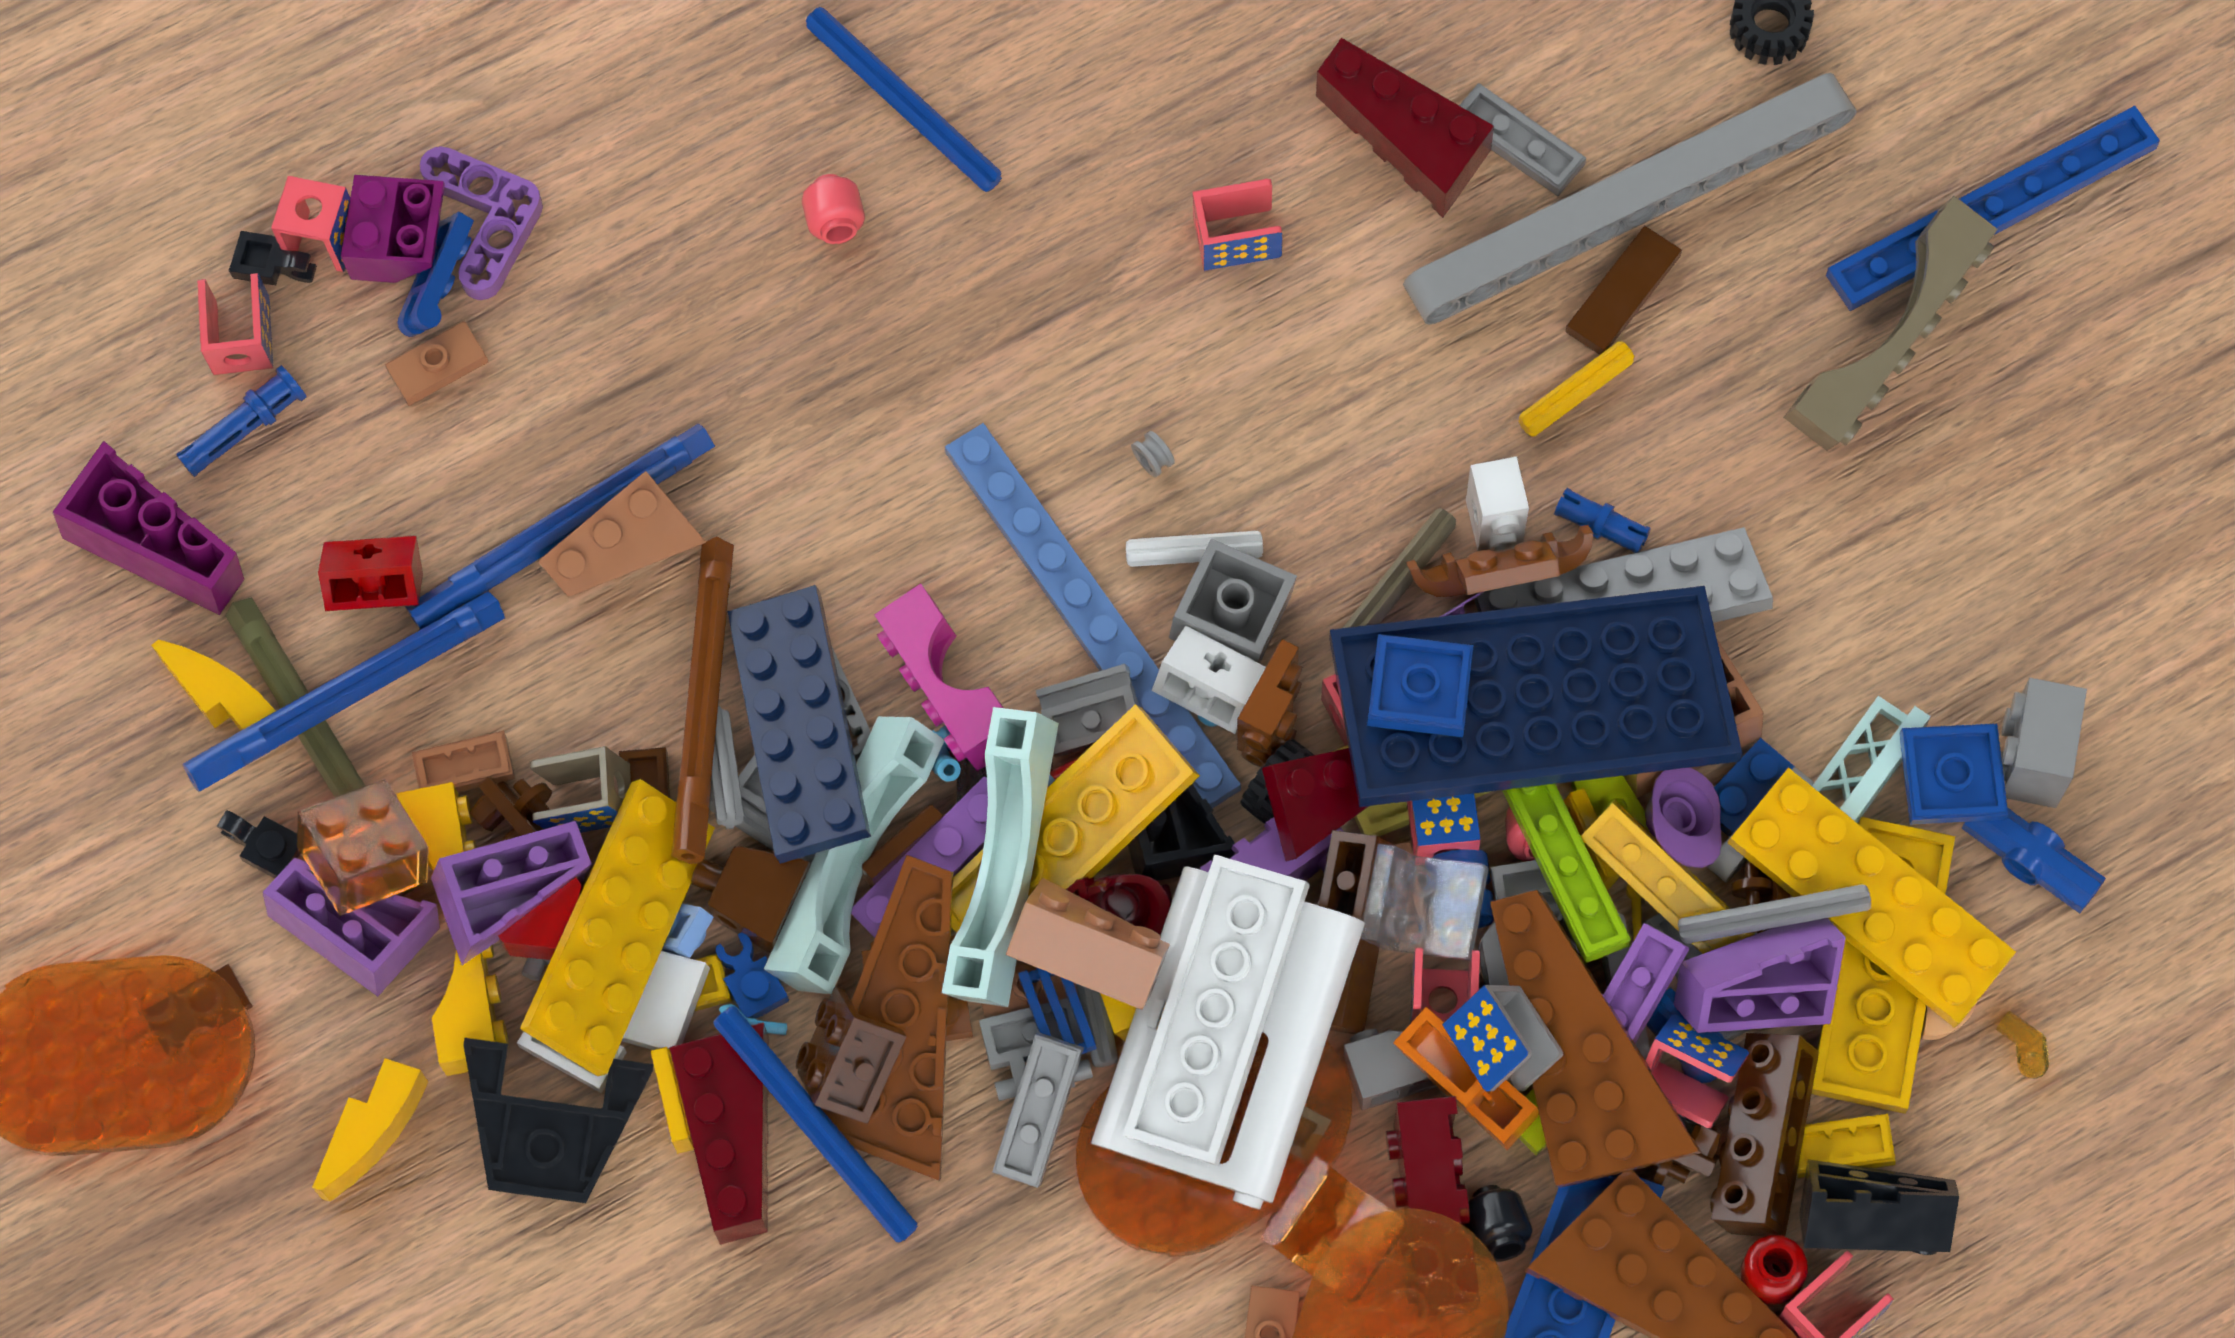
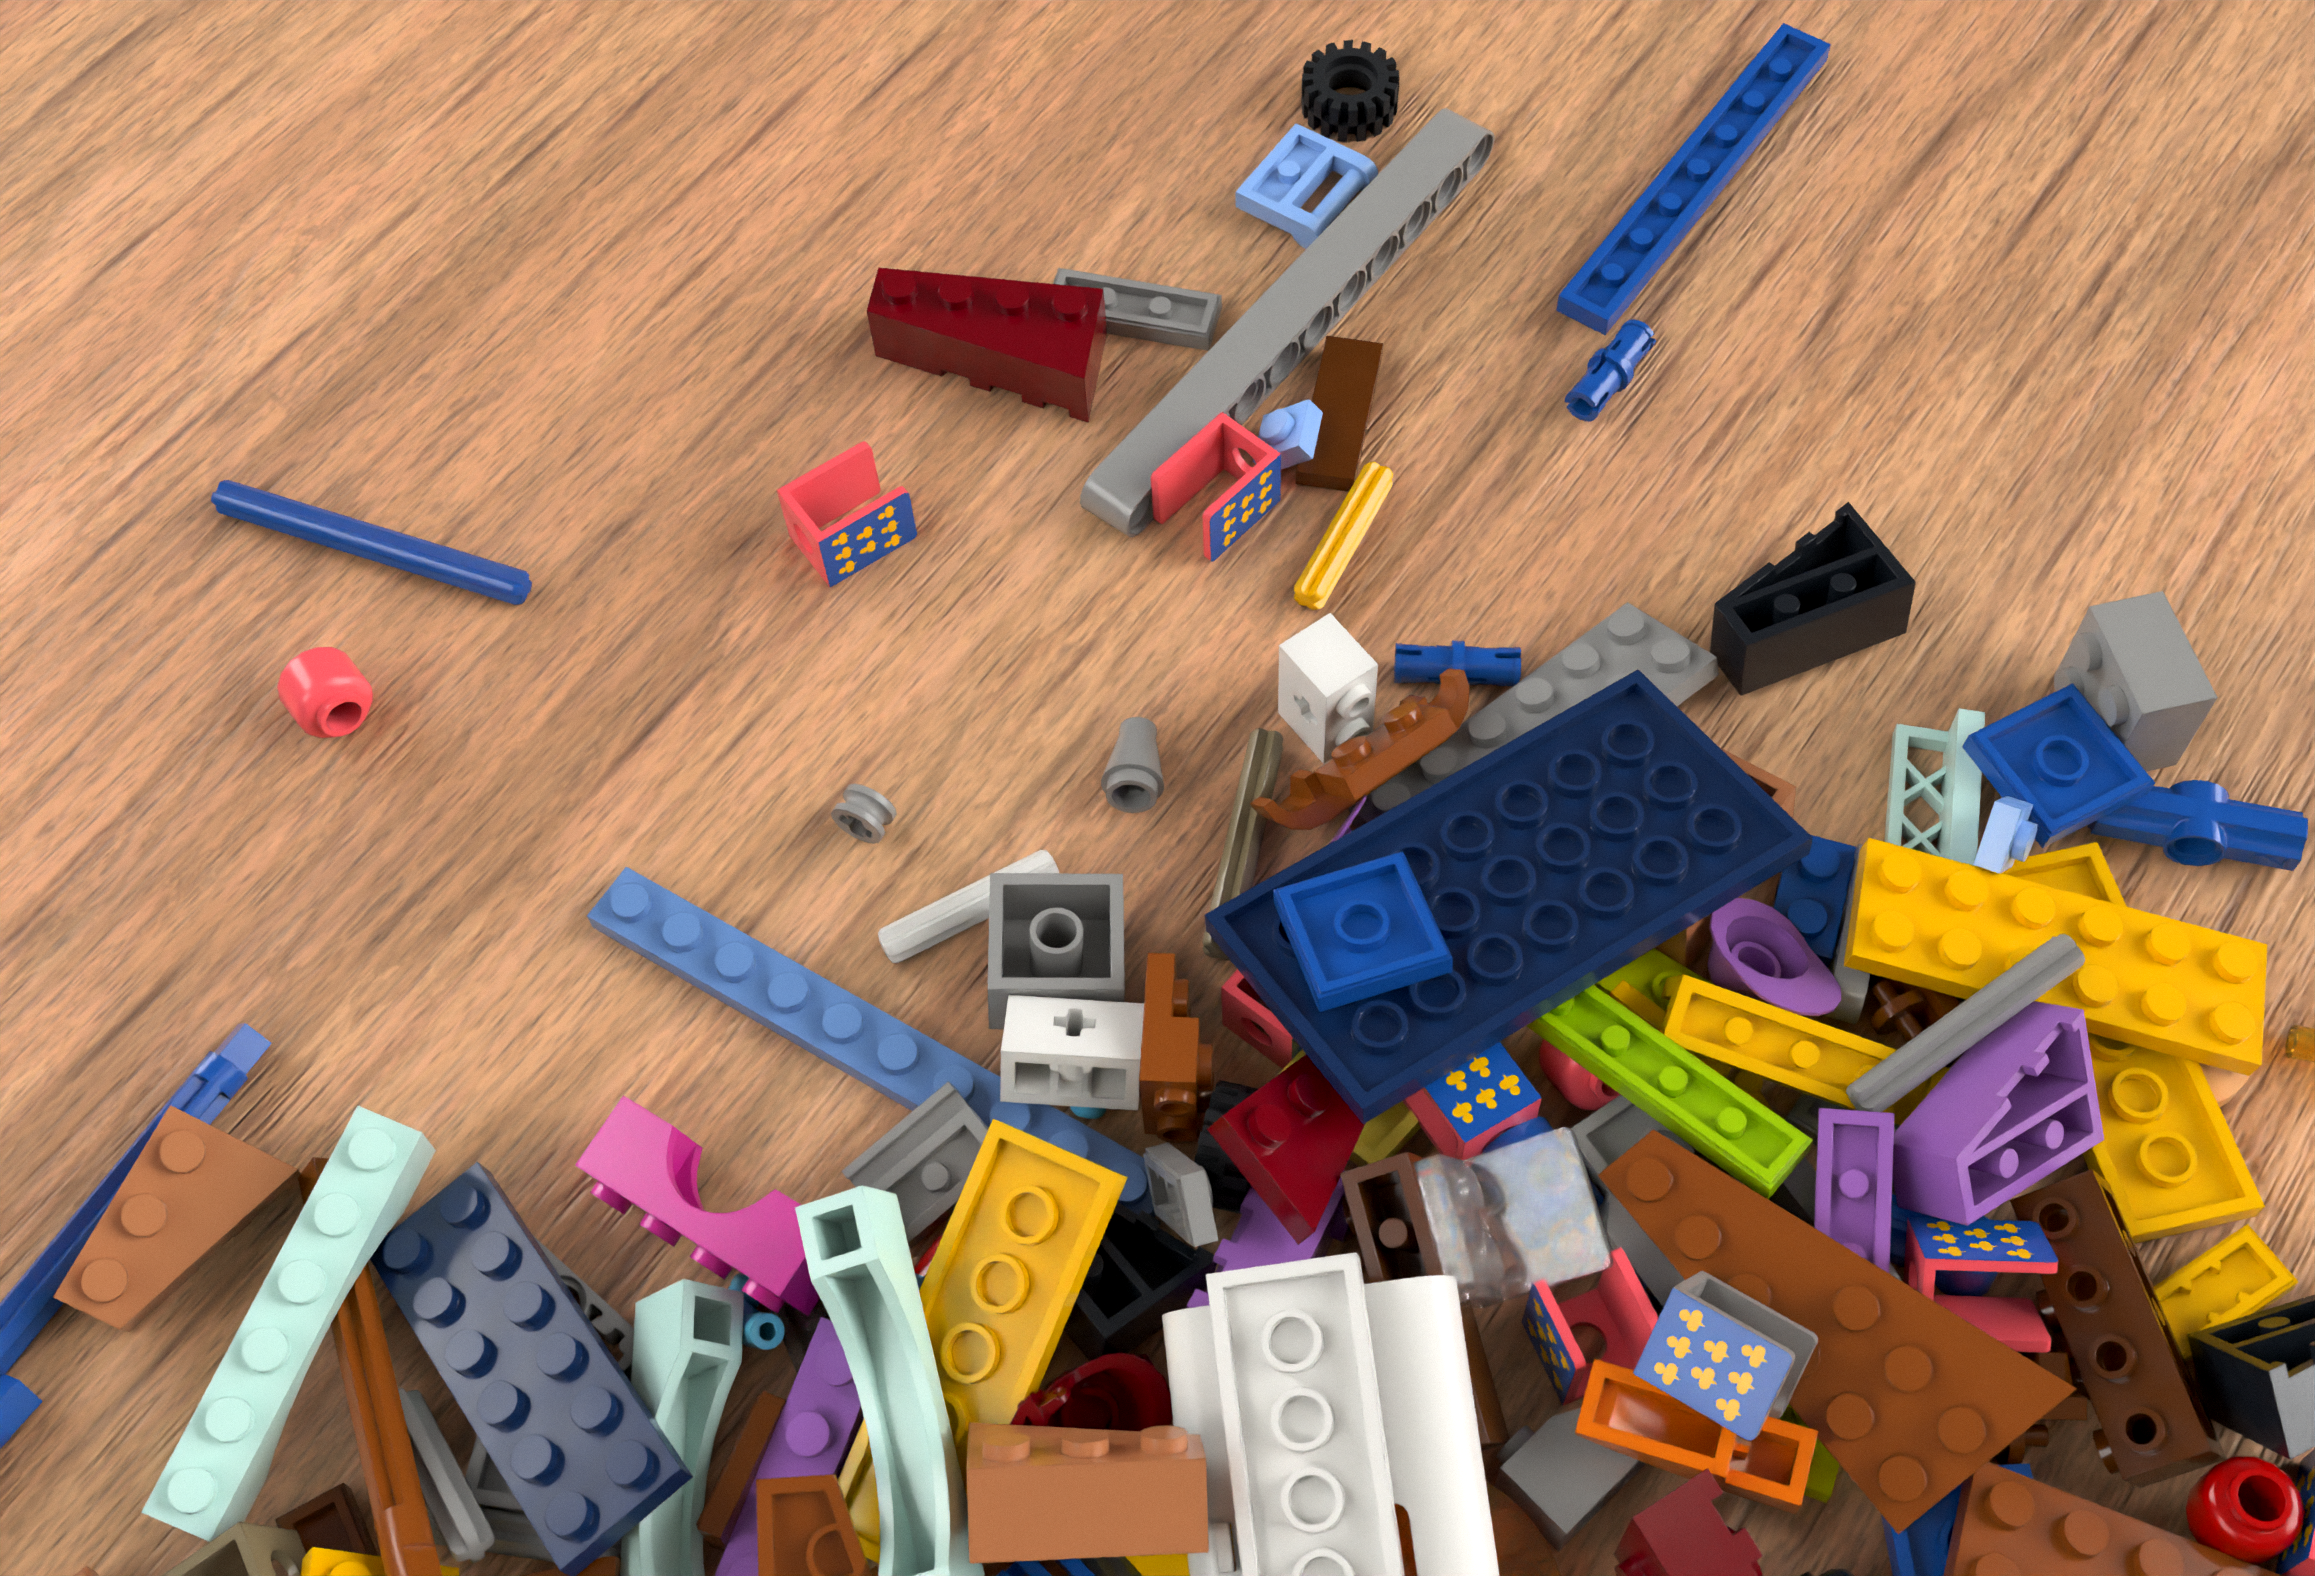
camera: 25 degrees left, 10 degrees down
(676, 631) = (244, 1409): none -> light aqua arch
(1232, 799) = (1181, 1194): none -> light grey plate
(1345, 500) = (1134, 769): none -> light grey cone
(1497, 292) = (1199, 462): none -> coral piece
(1573, 296) = (1292, 432): none -> light blue plate
(1687, 79) = (1294, 173): none -> light blue plate
(1835, 342) = (1610, 370): none -> blue pin
(1862, 588) = (1812, 606): none -> black wedge
(1882, 805) = (2006, 835): none -> light blue plate
(1944, 253) = (1683, 226): dark tan arch -> none

